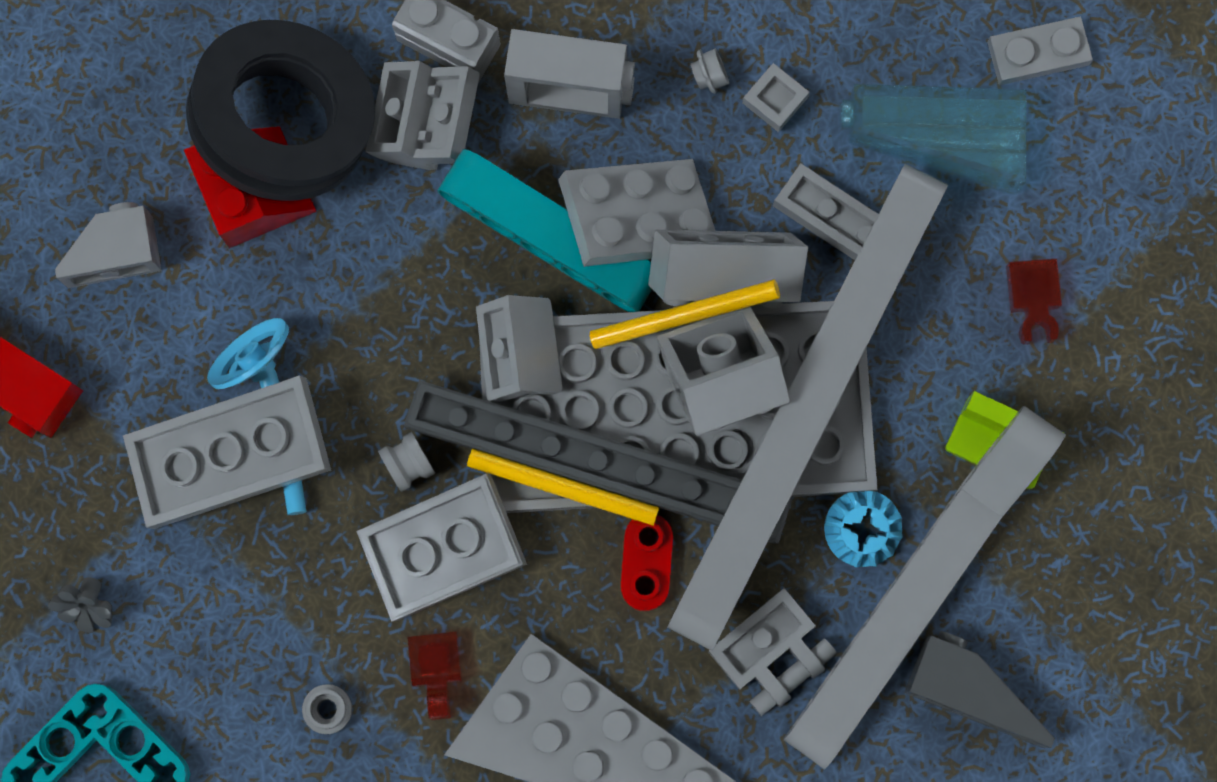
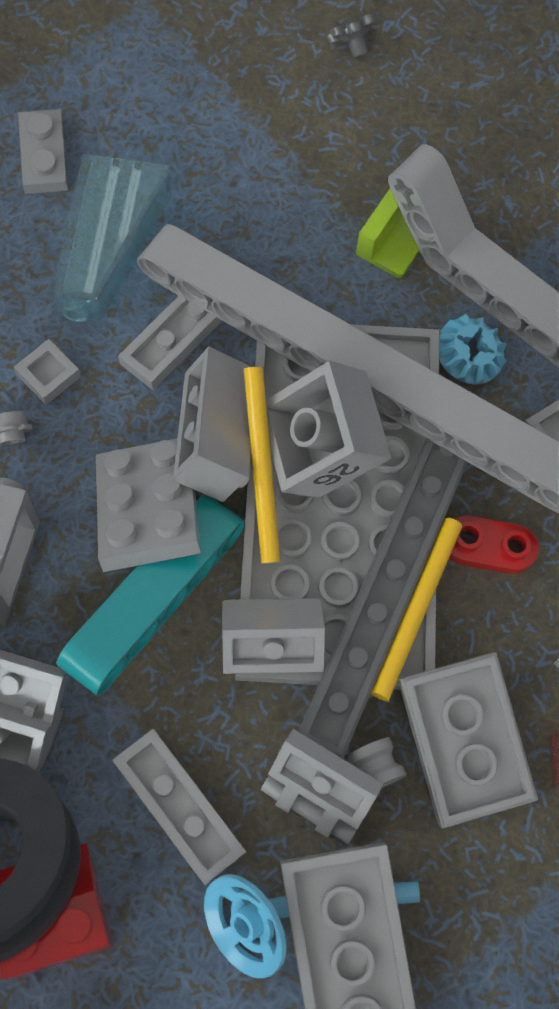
camera: 90 degrees left, 10 degrees down
(353, 285) = (179, 807): none -> light grey plate
(381, 403) = (320, 787): none -> light grey plate
(1035, 290) = (266, 183): clear red plate -> none

